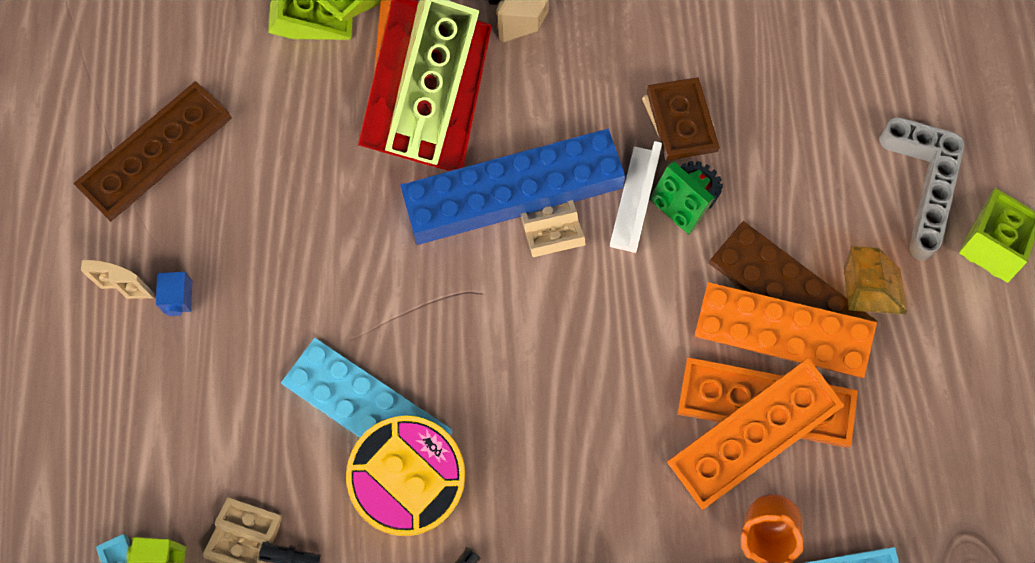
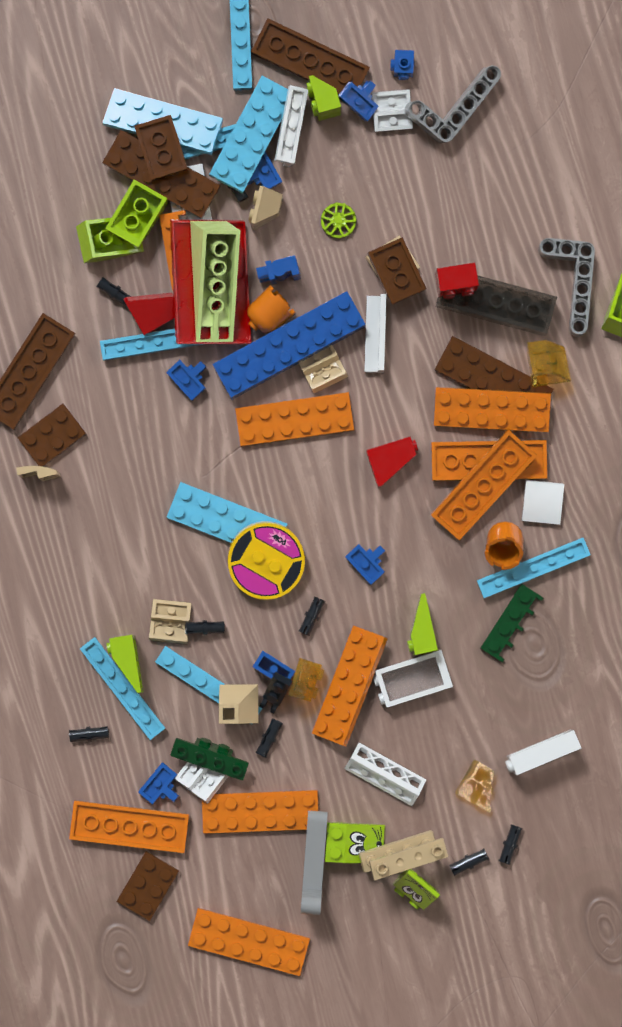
camera: 15 degrees left, 15 degrees up
(158, 239) = (51, 435): none -> reddish brown plate
(174, 293) = (76, 472): blue brick -> none
(298, 76) = (113, 291): none -> black pin
(320, 147) = (140, 344): none -> medium azure plate
(336, 104) = (151, 310): none -> red slope
(364, 202) = (188, 378): none -> blue hinge
(496, 134) = (269, 311): none -> orange cylinder
(497, 287) = (294, 419): none -> orange plate
(522, 87) = (279, 270): none -> blue hips
(556, 512) = (367, 562): none -> blue hinge
(615, 49) = (338, 220): none -> lime wheel
(623, 368) = (390, 458): none -> red slope
(687, 193) = (411, 325): green plate -> none
(767, 133) = (456, 280): none -> red brick
(814, 186) = (505, 305): none -> clear smoke brick
(838, 481) = (542, 502): none -> white slope

